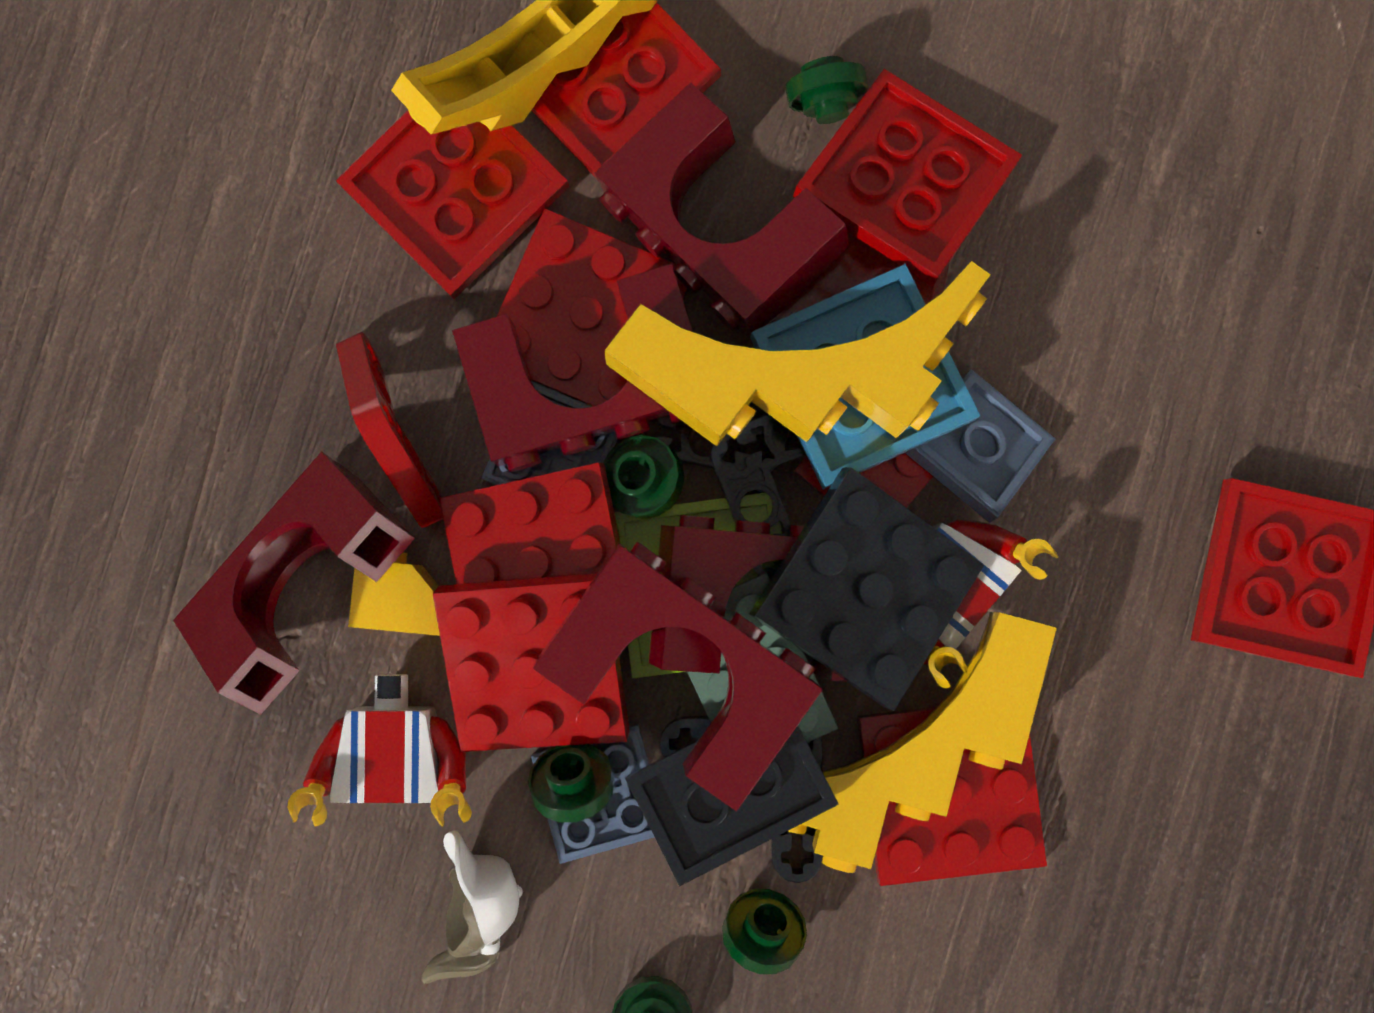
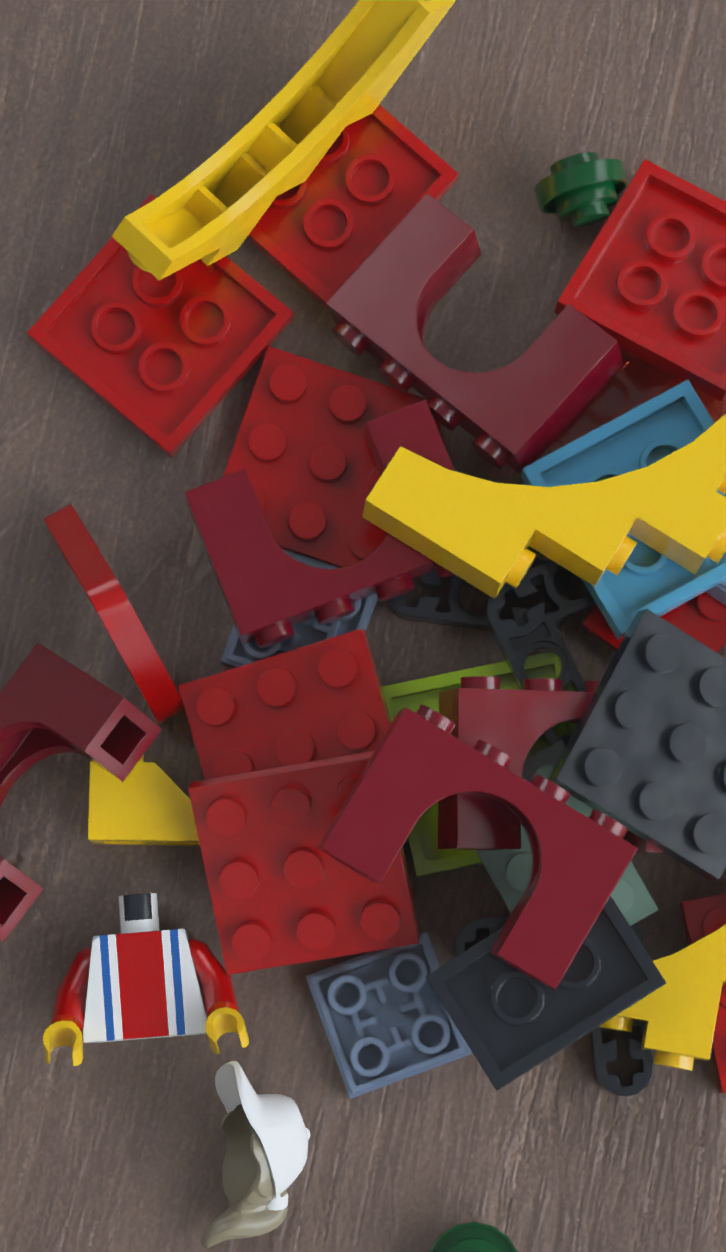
camera: 15 degrees left, 5 degrees down
(571, 782) = (360, 993): dark green plate -> none
(643, 476) = (411, 642): dark green plate -> none
(764, 931) = (594, 1153): dark green plate -> none

